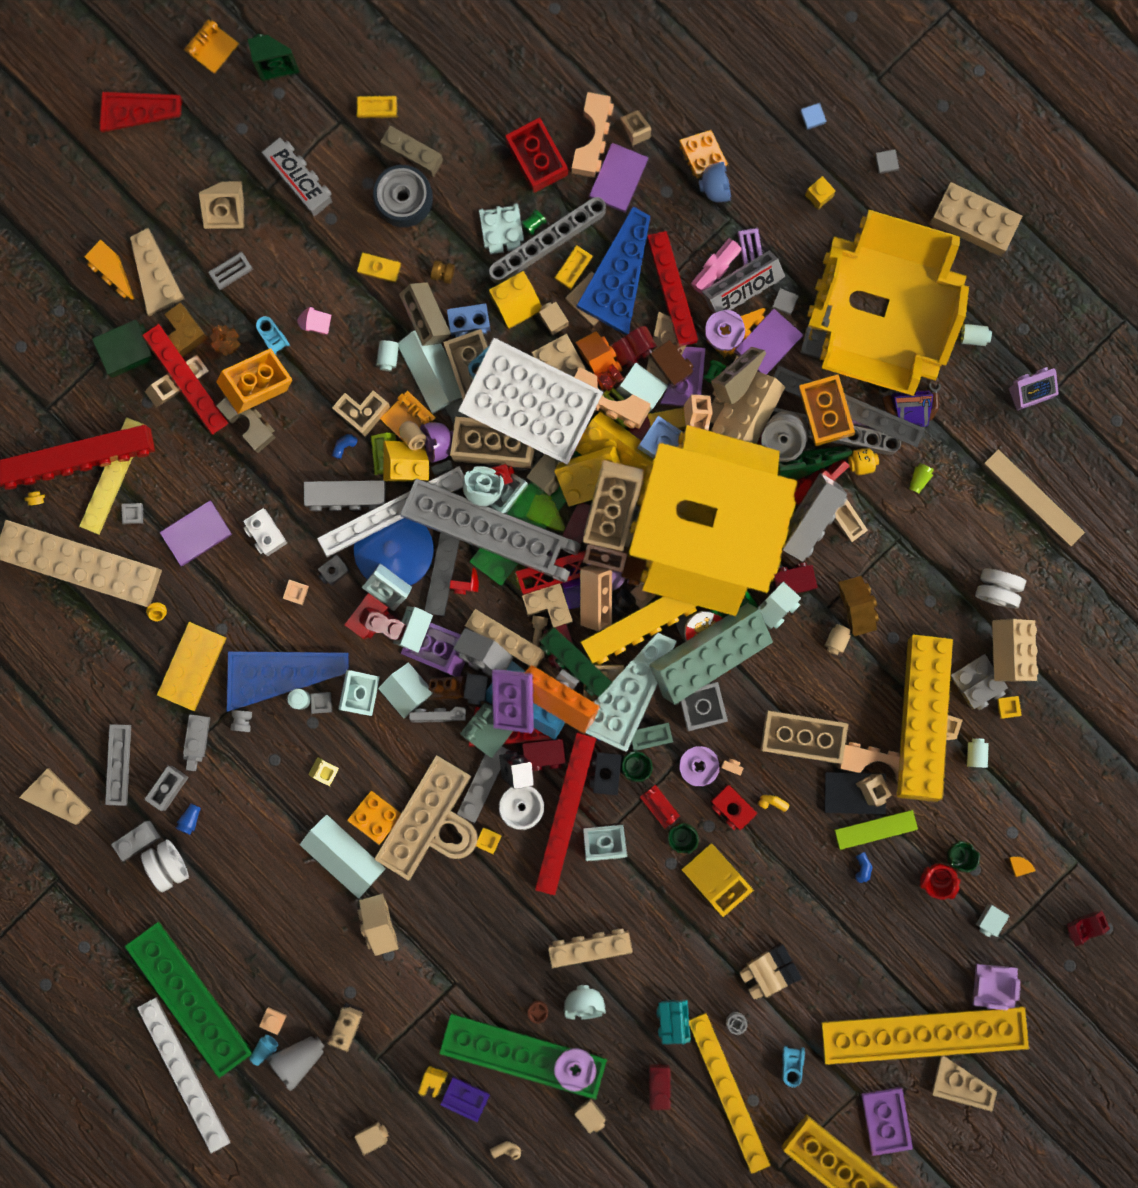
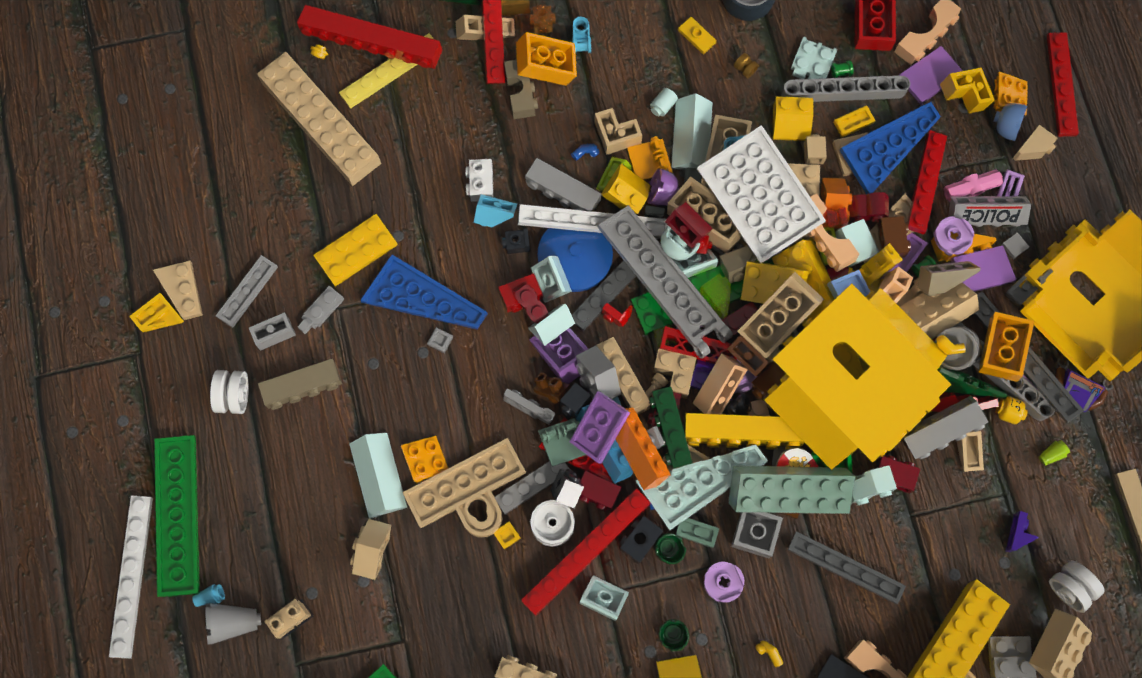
camera: 25 degrees right, 10 degrees down
(50, 836) = (156, 314): none -> yellow wing
(132, 513) = (386, 107): light grey tile -> none
(136, 841) = (220, 359): light grey brick -> none
(156, 611) = (352, 193): yellow plate -> none
(188, 820) = (273, 368): blue cone -> none
(196, 533) = (426, 150): medium lavender tile -> none
(222, 819) = (300, 384): none -> dark tan brick
(241, 721) = (366, 315): light grey wheel -> none
(273, 1020) = (233, 576): light nougat plate -> none
(295, 592) = (475, 240): light nougat plate -> none
(296, 555) = (493, 211): none -> medium azure slope
(299, 699) = (424, 325): light aqua brick -> none
(314, 321) = (622, 45): bright pink tile -> none
(323, 771) = (407, 396): light yellow slope -> none
(359, 693) = (475, 349): light aqua slope -> none
(405, 690) = (515, 370): light aqua slope -> none
(412, 435) = (646, 172): tan brick -> none
(424, 314) = (713, 87): dark tan brick -> none
(468, 315) = (747, 108): medium blue brick -> none
(482, 468) = (688, 225): none -> dark red brick
(636, 127) = (967, 46): tan slope -> none
(660, 806) = (669, 596): red hinge -> none
(661, 170) = (970, 86): none -> yellow brick
(674, 398) = (880, 264): none -> yellow hinge
(732, 766) = (752, 599): light nougat plate -> none
(742, 816) = (741, 644): red brick -> none
(744, 114) = (1062, 84): none -> red plate
(752, 191) = (1037, 145): none -> tan slope
(776, 444) = (948, 347): none -> yellow arm
(797, 689) = (846, 568): none -> dark grey plate
(804, 737) = (830, 611): tan brick -> none
(813, 116) = (1119, 116): light blue tile -> none
(820, 192) = (1093, 176): yellow brick -> none
(838, 639) = (906, 546): tan brick -> none
(859, 605) = (941, 528): pearl gold brick -> none
(928, 574) = (1017, 537): none -> dark purple slope

